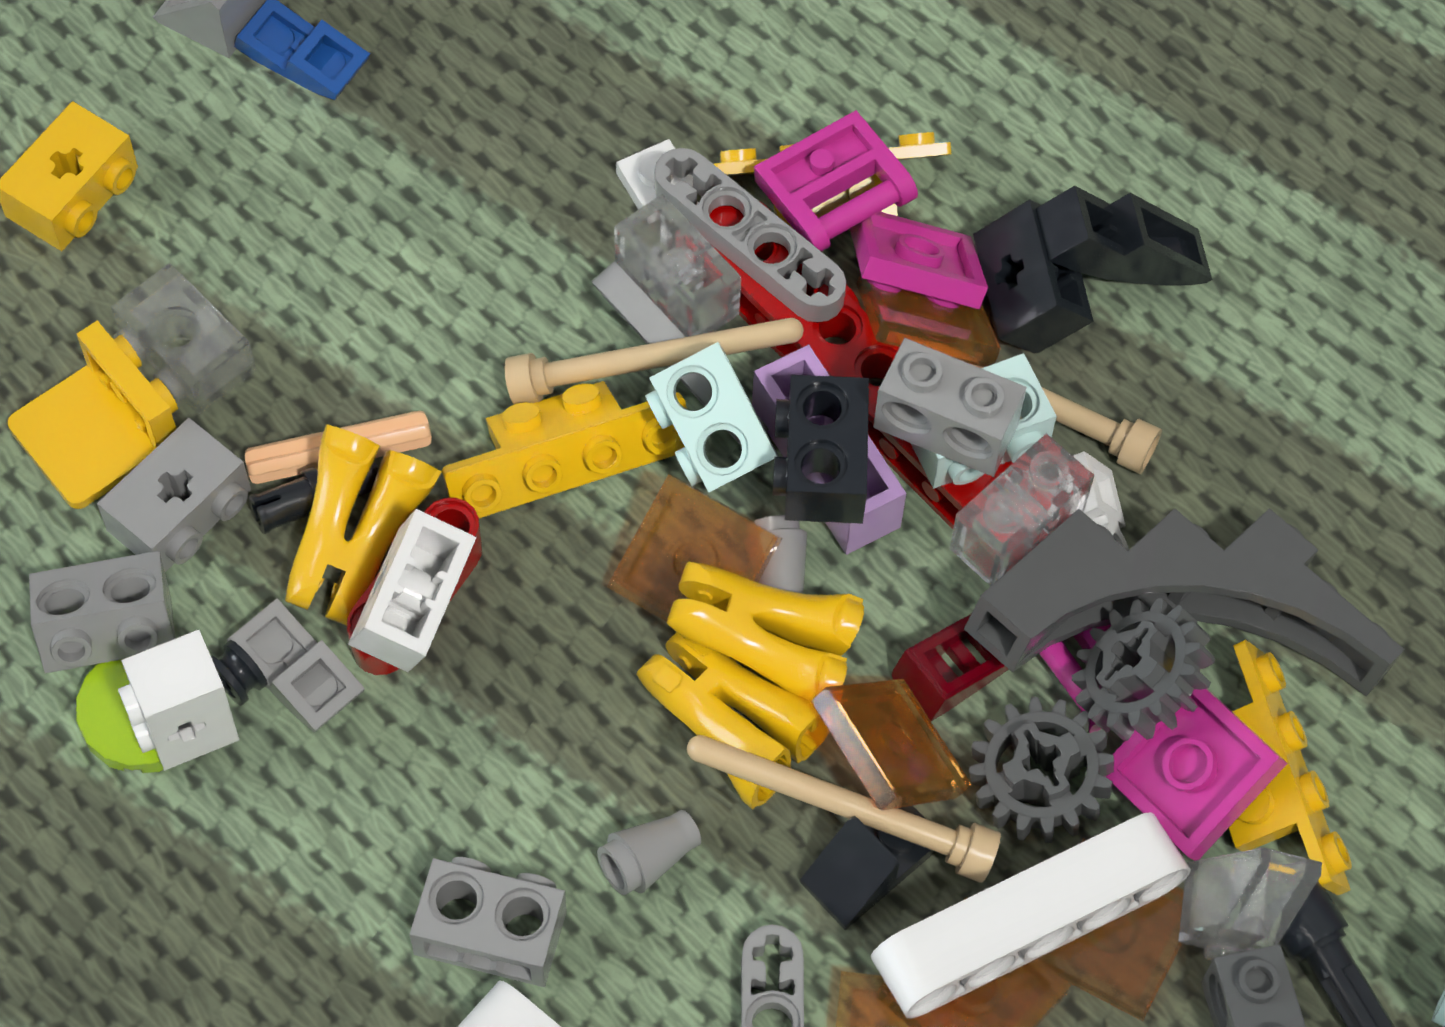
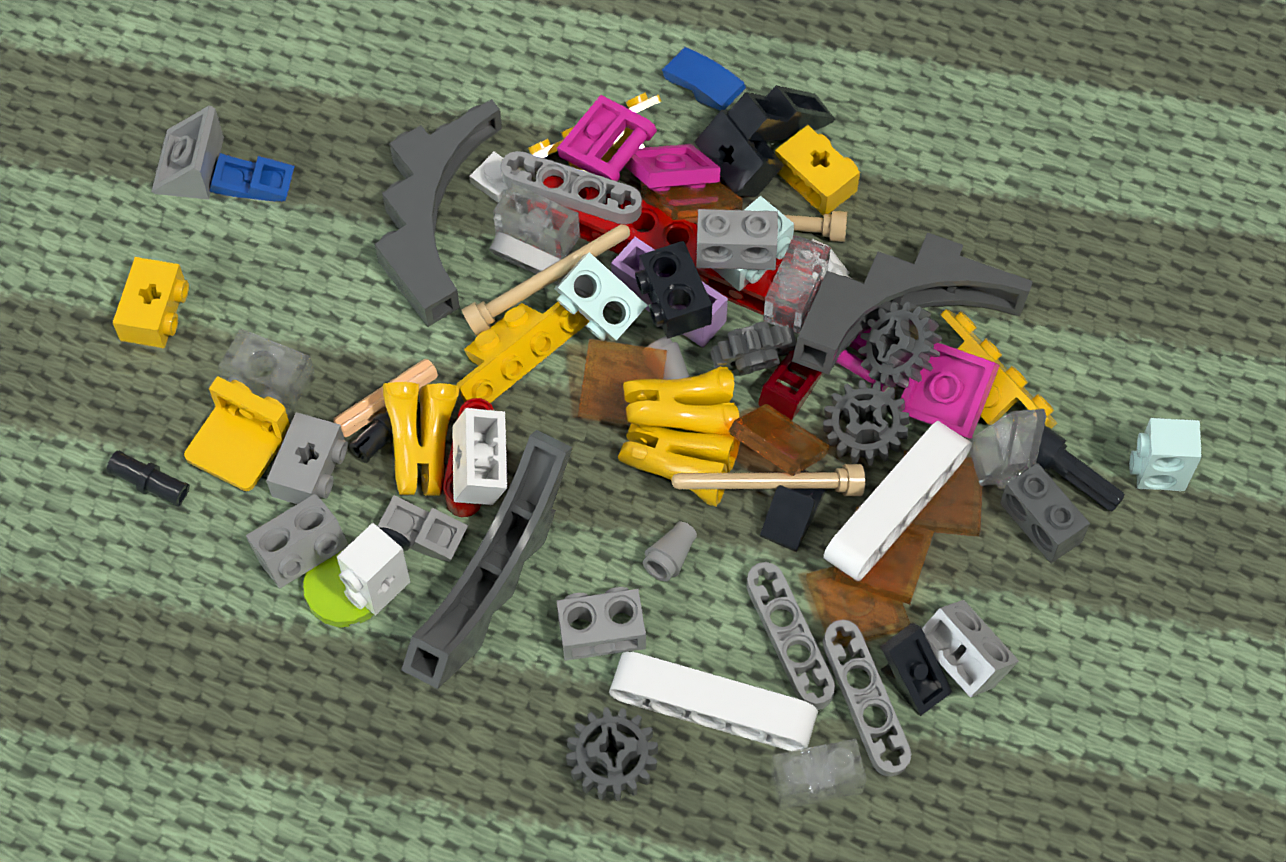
camera: 20 degrees left, 0 degrees up
(359, 779) = (491, 577): none -> dark grey arch
(516, 172) = (413, 205): none -> dark grey arch
(914, 585) = (754, 347): none -> dark grey gear
(1038, 144) = (706, 78): none -> blue slope
(1145, 347) = (817, 170): none -> yellow brick

